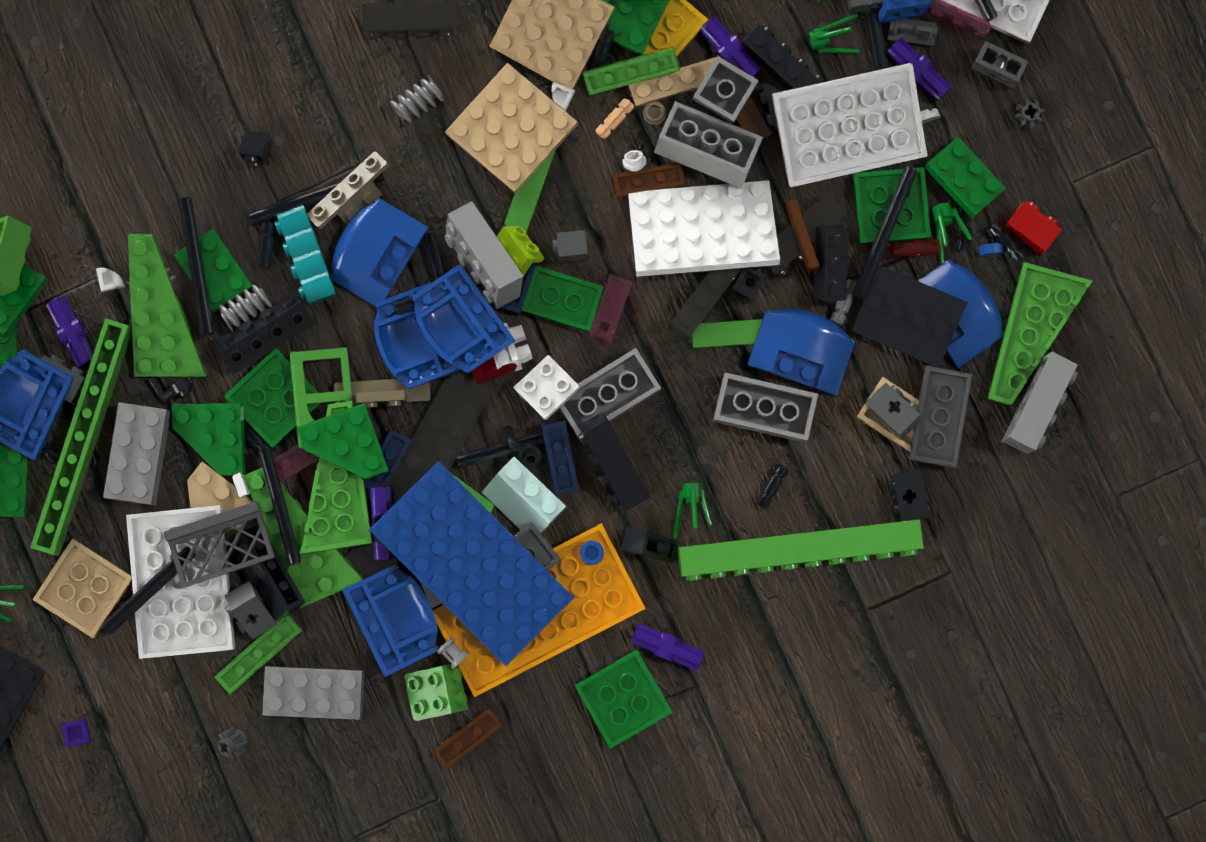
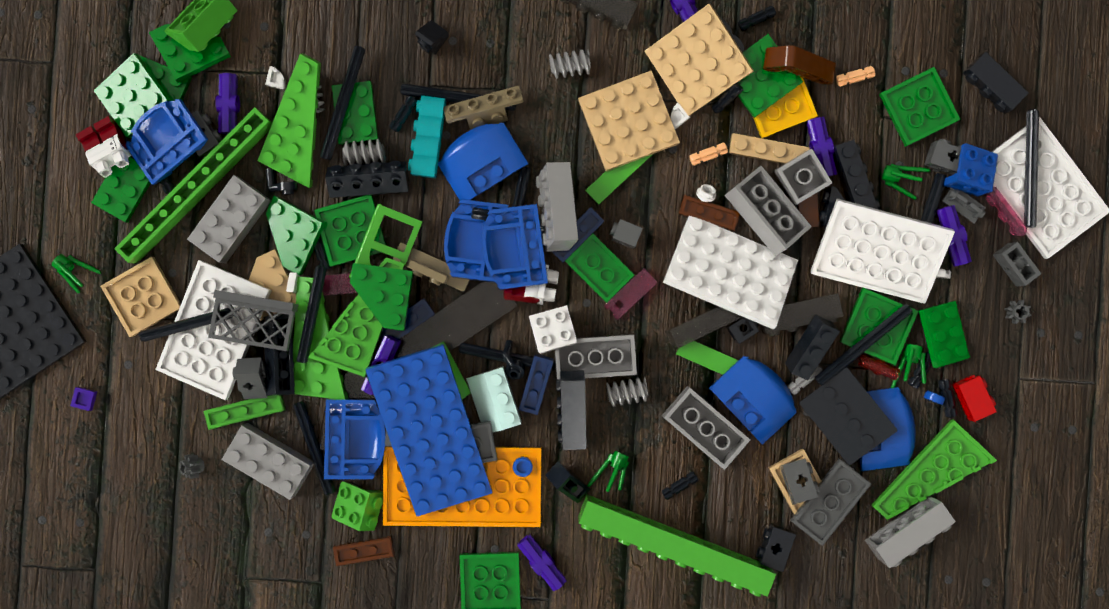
camera: 30 degrees right, 5 degrees up
(355, 654) = (313, 446): none -> black axle
(452, 652) = (383, 487): light grey bush -> none
(519, 247) = (587, 214): lime bracket -> none
(631, 71) = (740, 125): bright green tile -> none
(654, 113) = (740, 165): dark tan plate -> none
(662, 413) = (627, 392): none -> light grey piece
(802, 236) = (801, 316): reddish brown tile -> none

